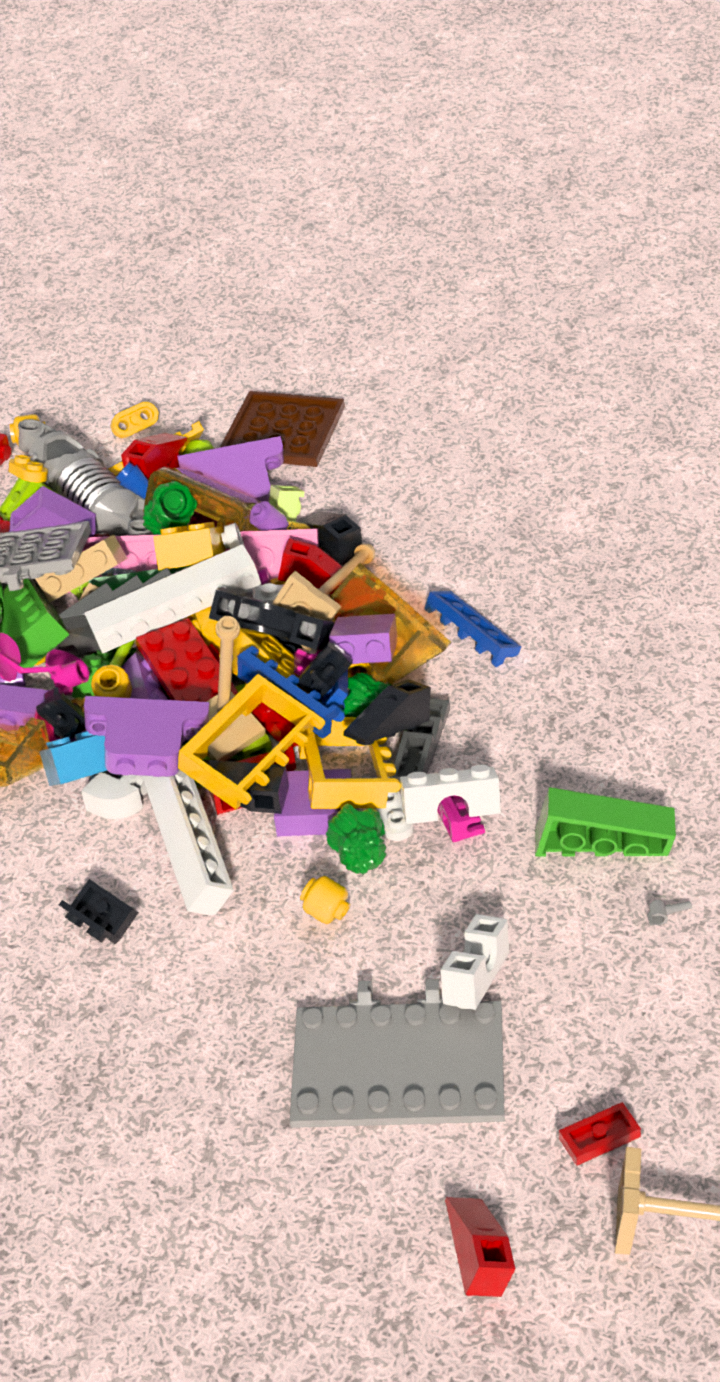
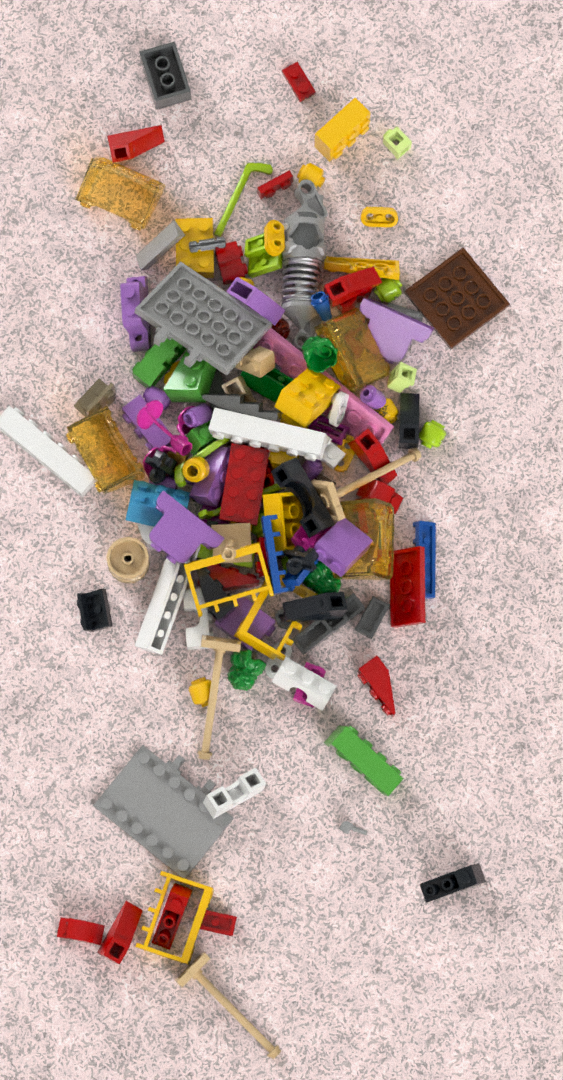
camera: 30 degrees right, 35 degrees up
(30, 378) = (342, 130): none -> yellow brick
(70, 648) = (197, 415): none -> medium lavender brick
(100, 365) = (397, 135): none -> yellowish green brick
(100, 833) = (128, 571): none -> tan wheel
(264, 847) = (194, 634): none -> white arch
(305, 813) = (219, 645): none -> tan tile
(364, 760) = (280, 613): none -> dark grey bush
(371, 524) = (432, 434): none -> lime head
(410, 1276) = (80, 930): none -> red brick
(467, 706) = (372, 617): none -> dark grey plate
(483, 650) = (408, 587): none -> red plate
(524, 1108) = (204, 904): none -> yellow hinge
(531, 1169) = (172, 916): none -> red slope
(541, 751) = (378, 679): none -> red slope

